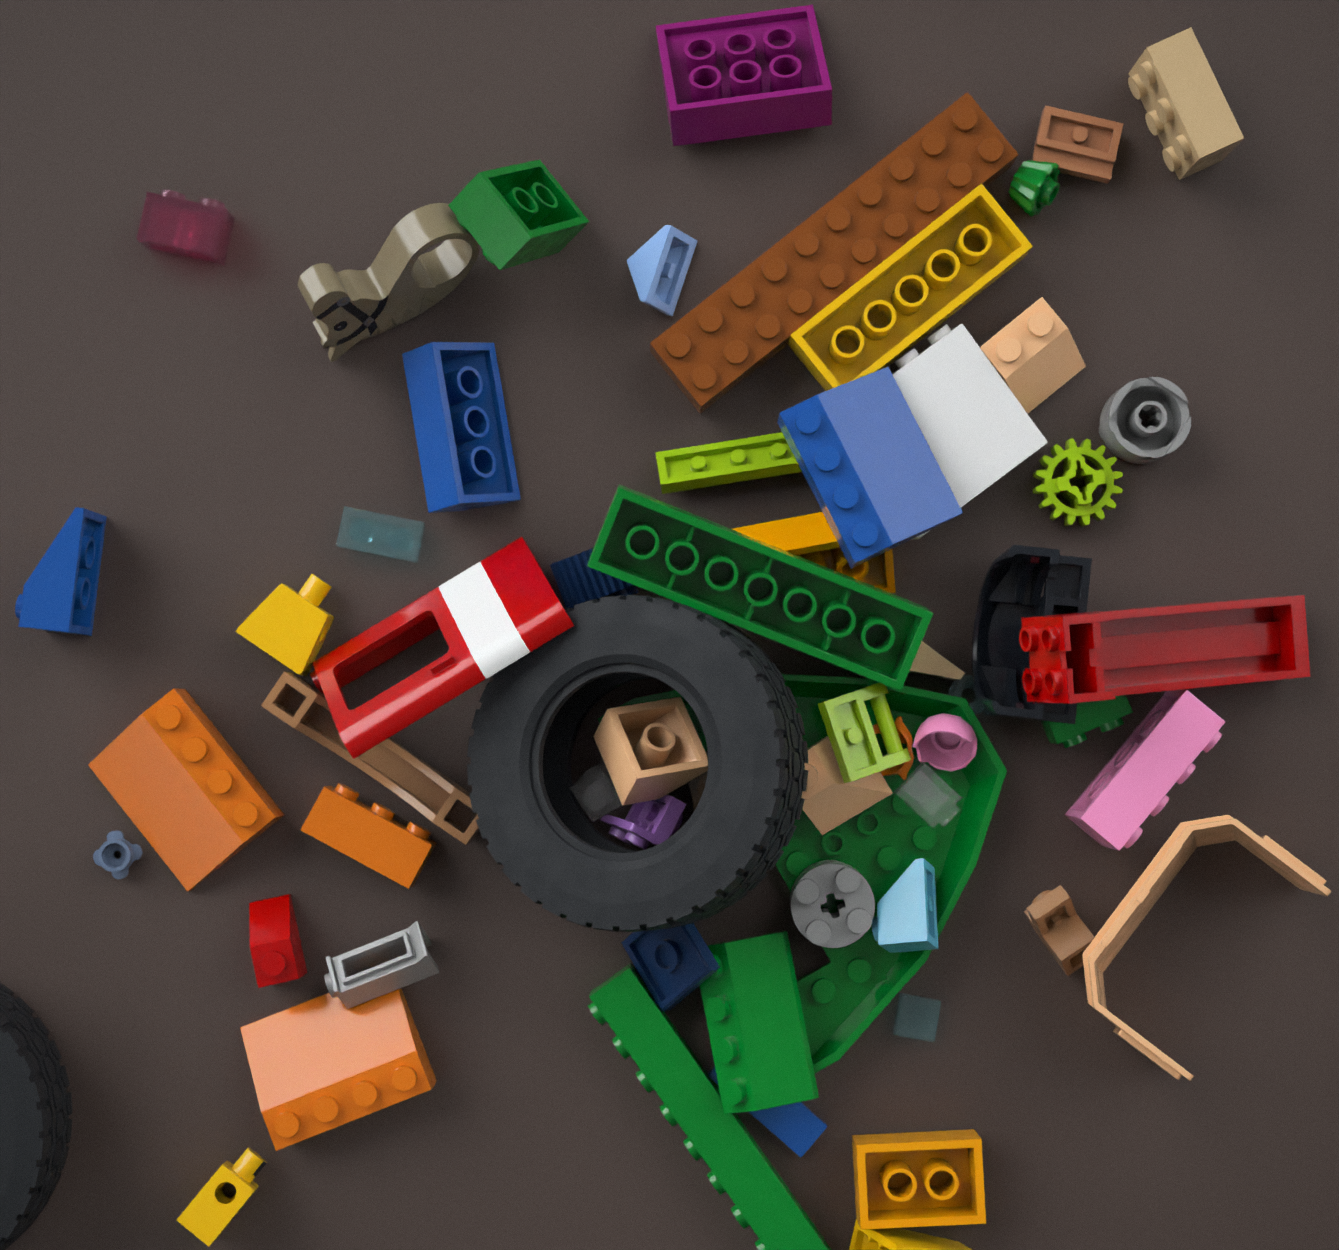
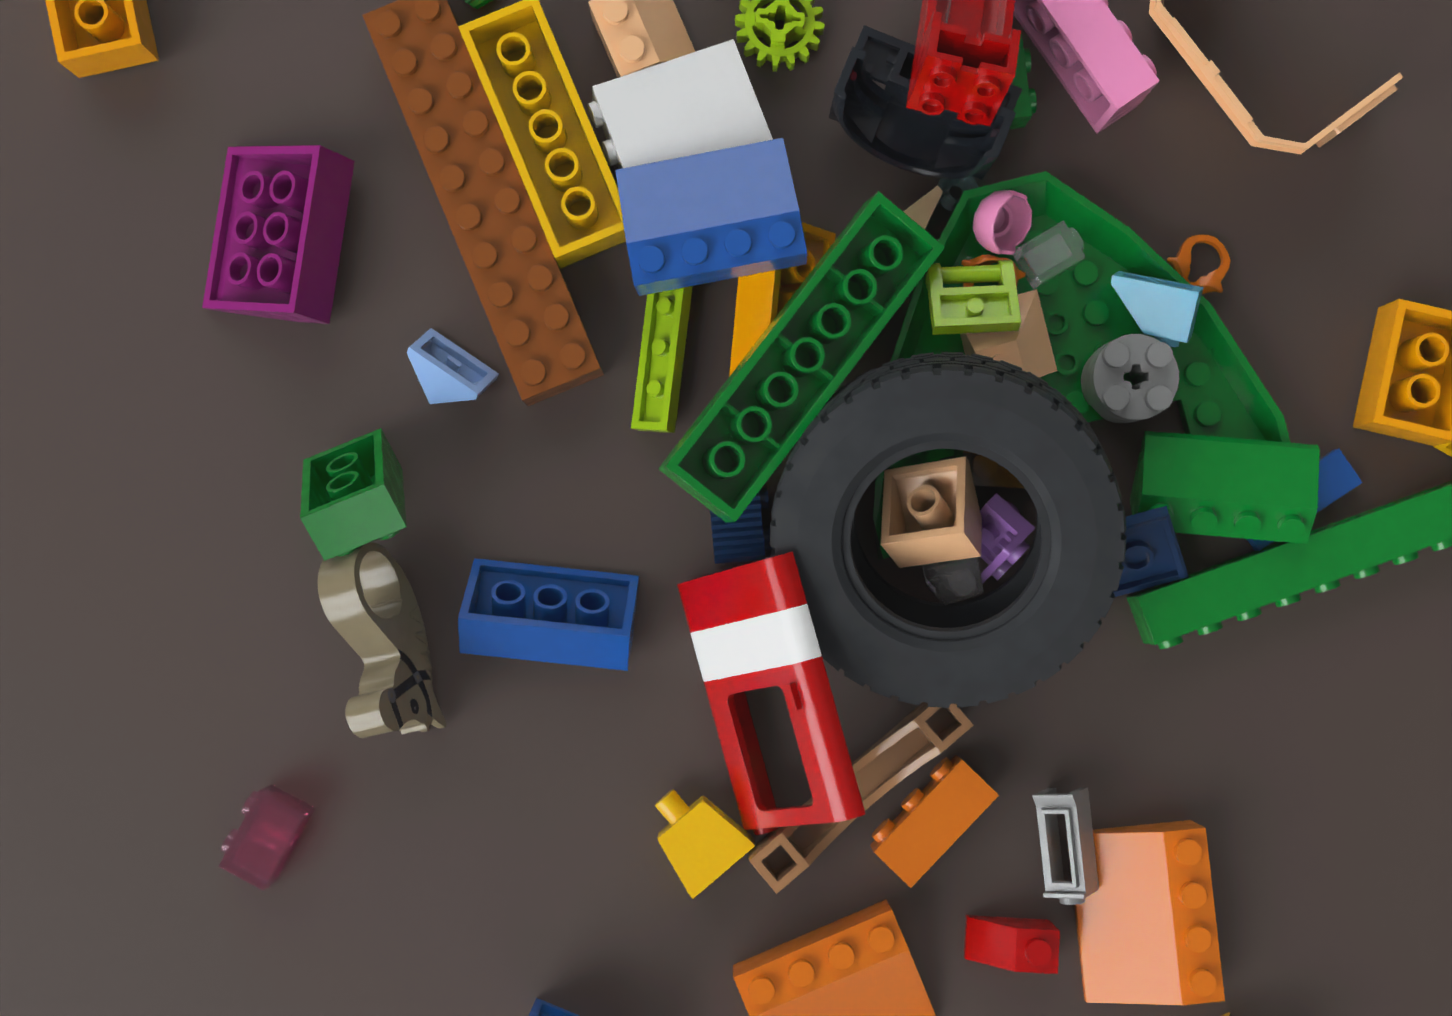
camera: 80 degrees left, 0 degrees up
(380, 534) = (634, 725): clear light blue plate -> none
(916, 1017) = (1256, 331): clear light blue tile -> none
(958, 928) = (1182, 262): none -> orange piece
(1059, 928) = (1212, 165): medium nougat brick -> none

